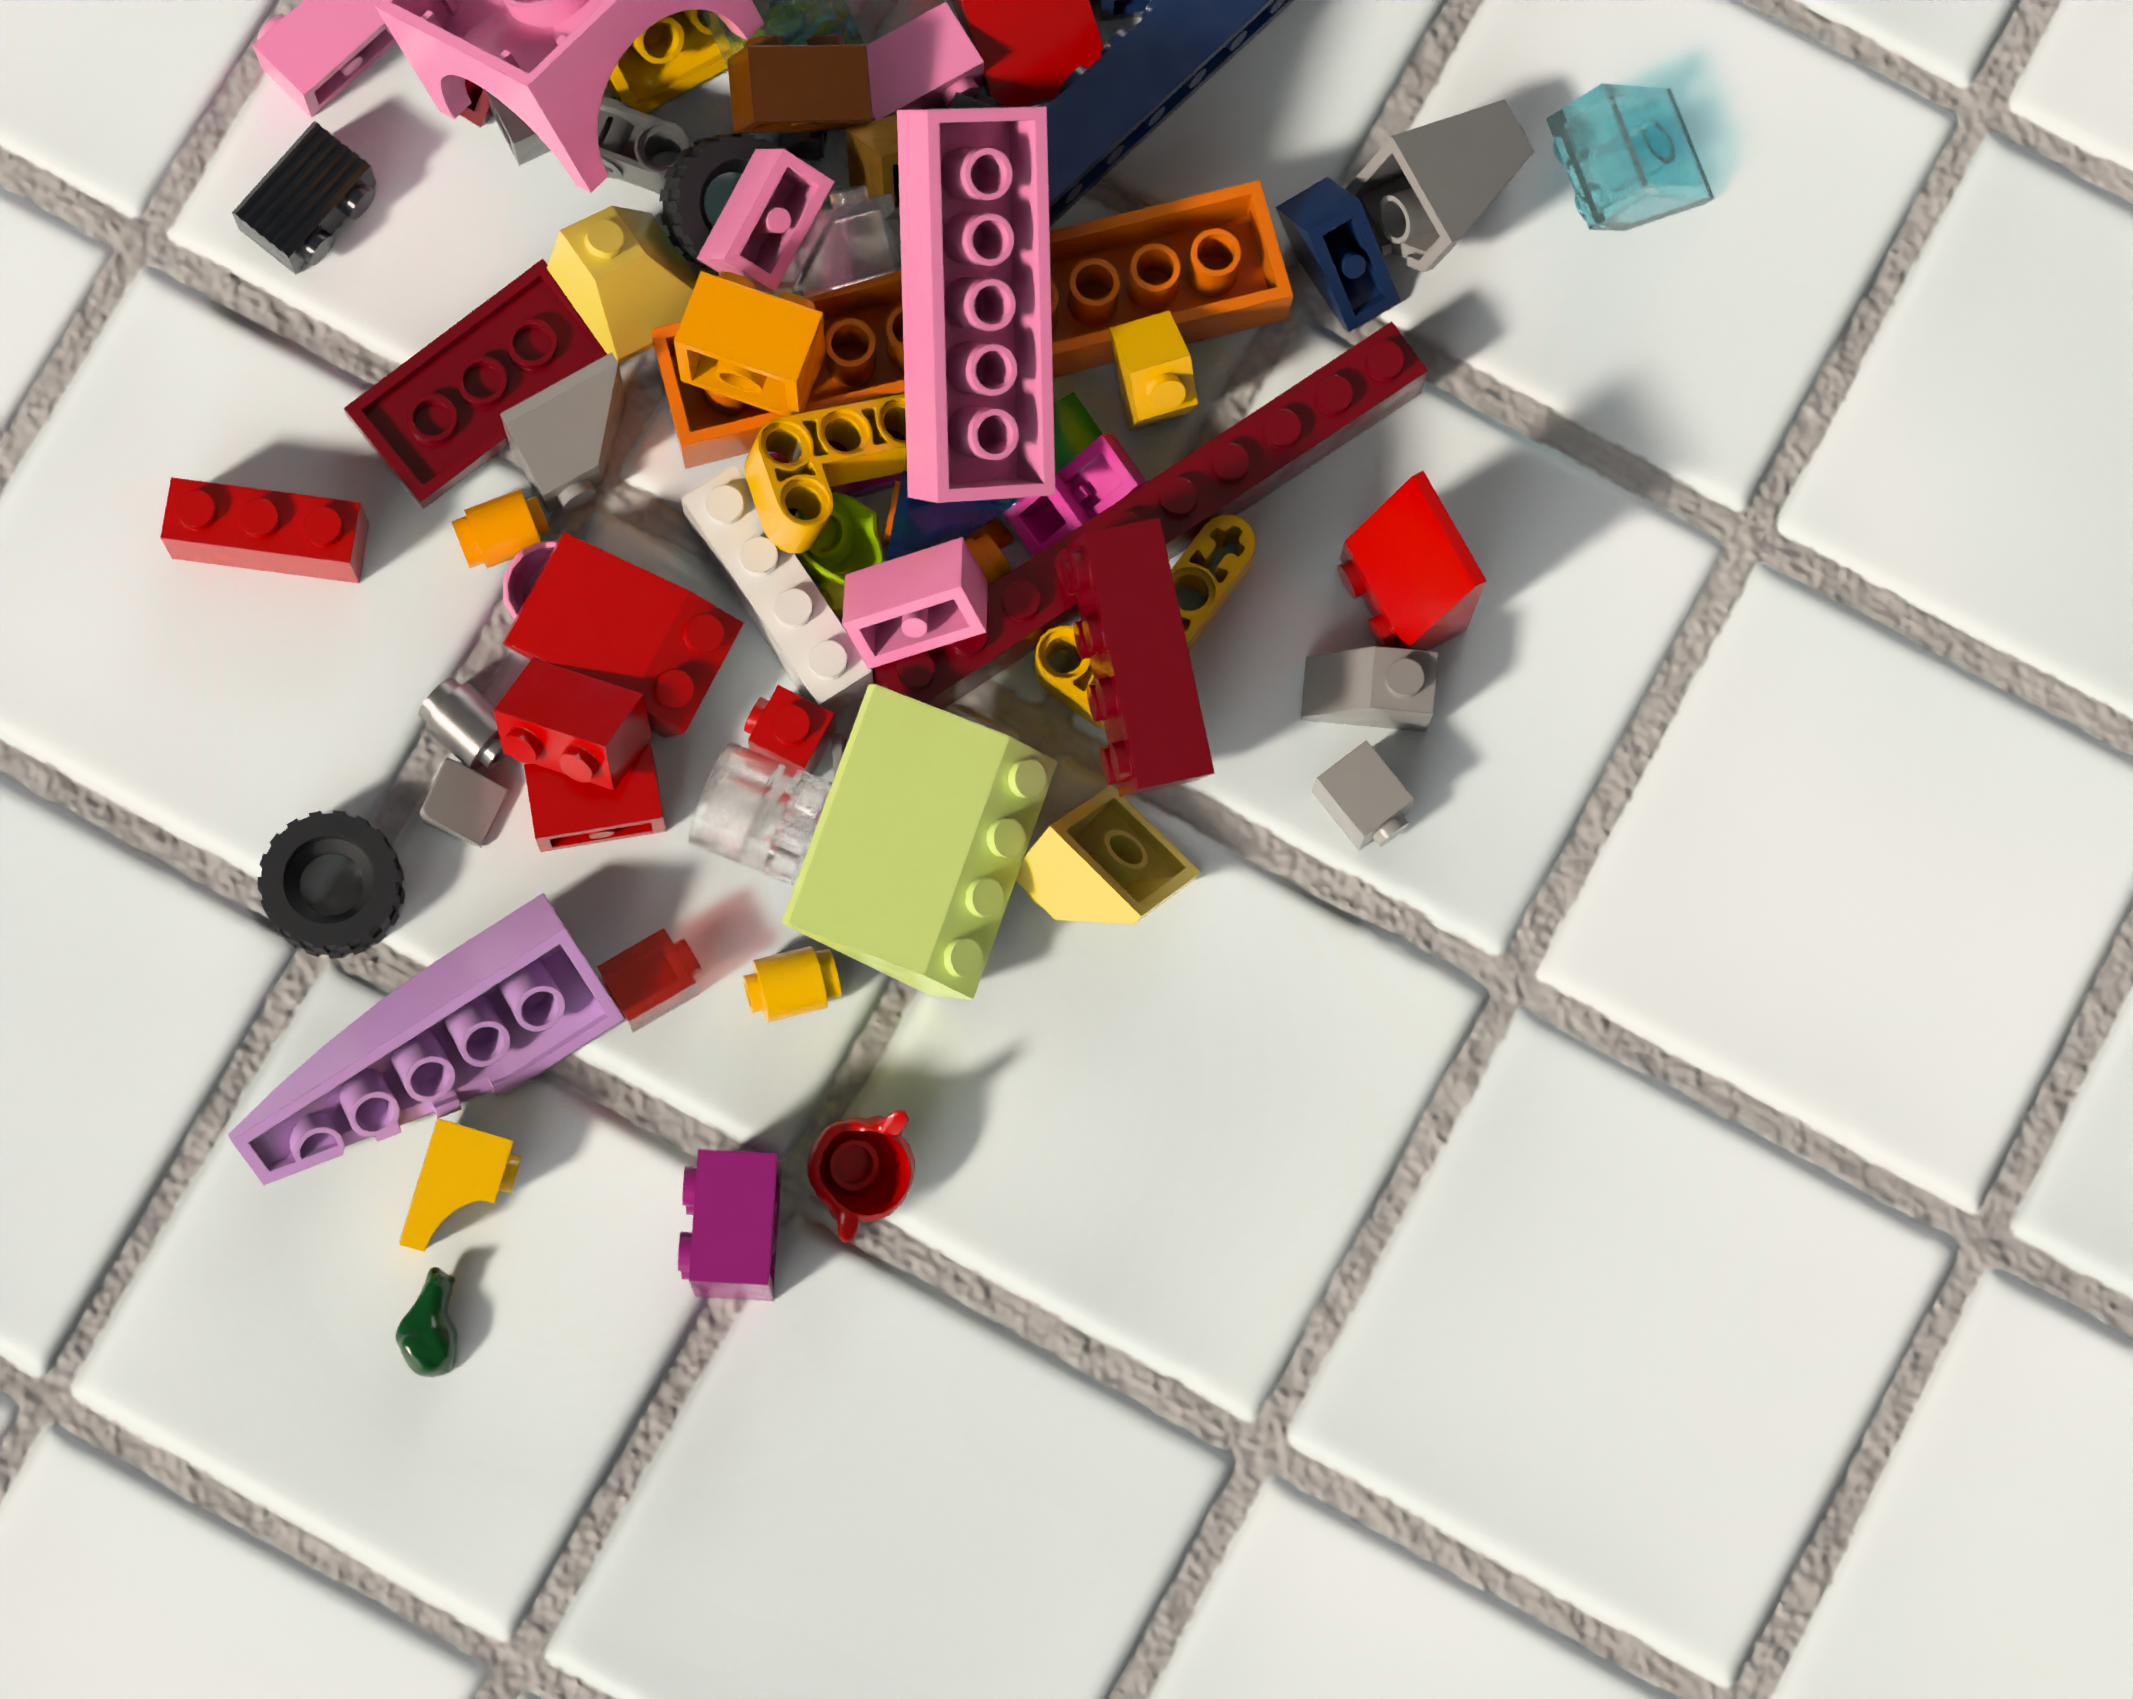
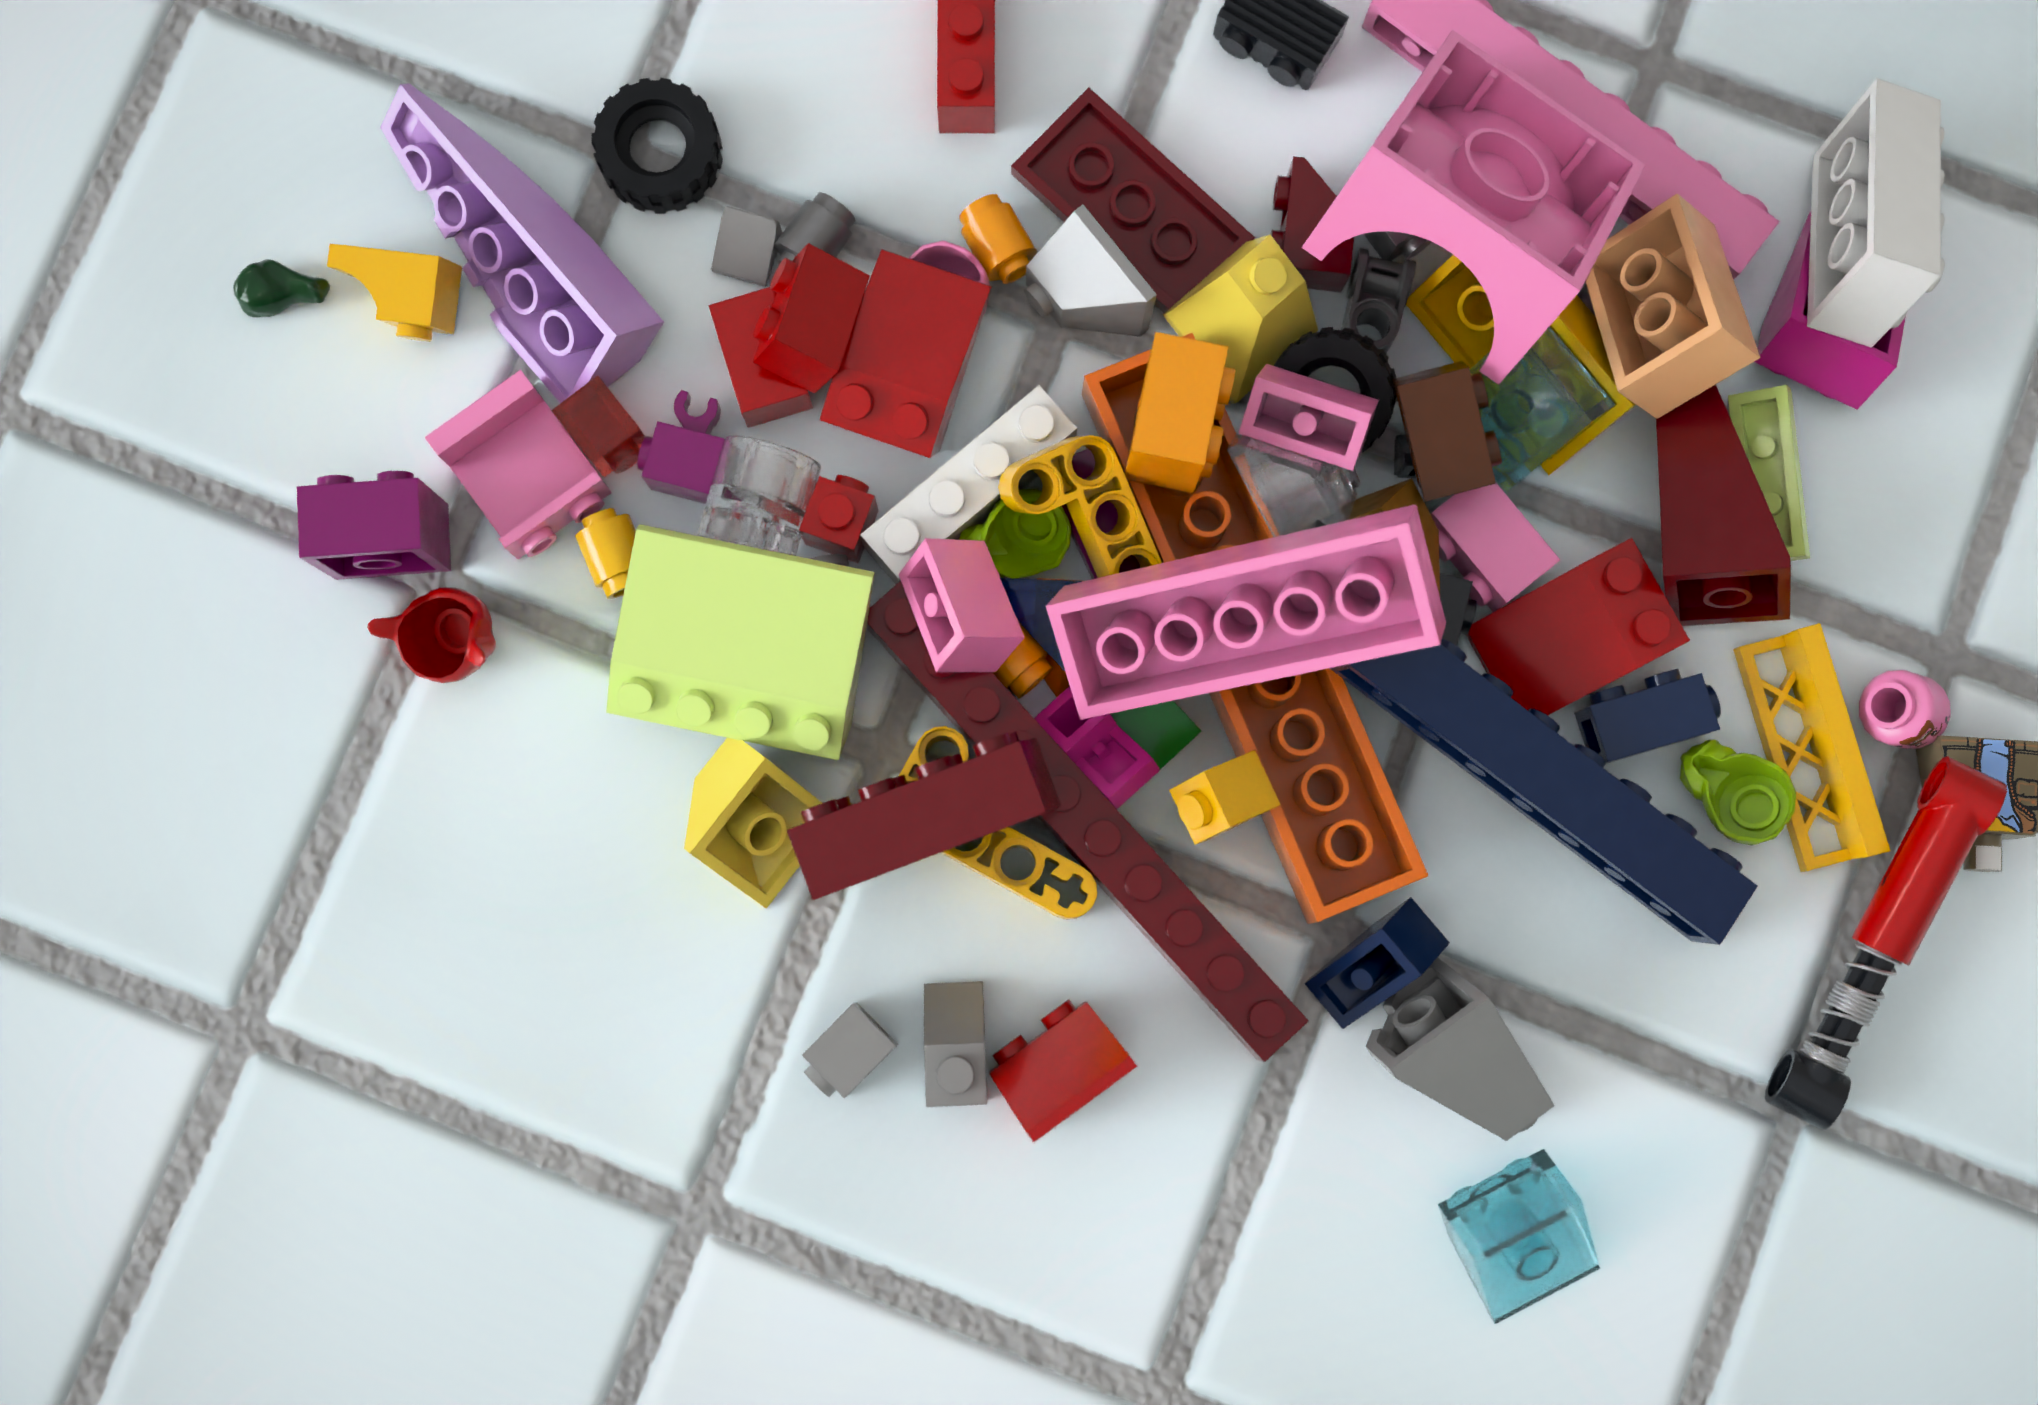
camera: 85 degrees right, 5 degrees up
(532, 200) = (1303, 202): none -> dark red slope
(683, 1075) = (520, 466): none -> bright pink panel
(698, 891) = (684, 458): none -> magenta brick

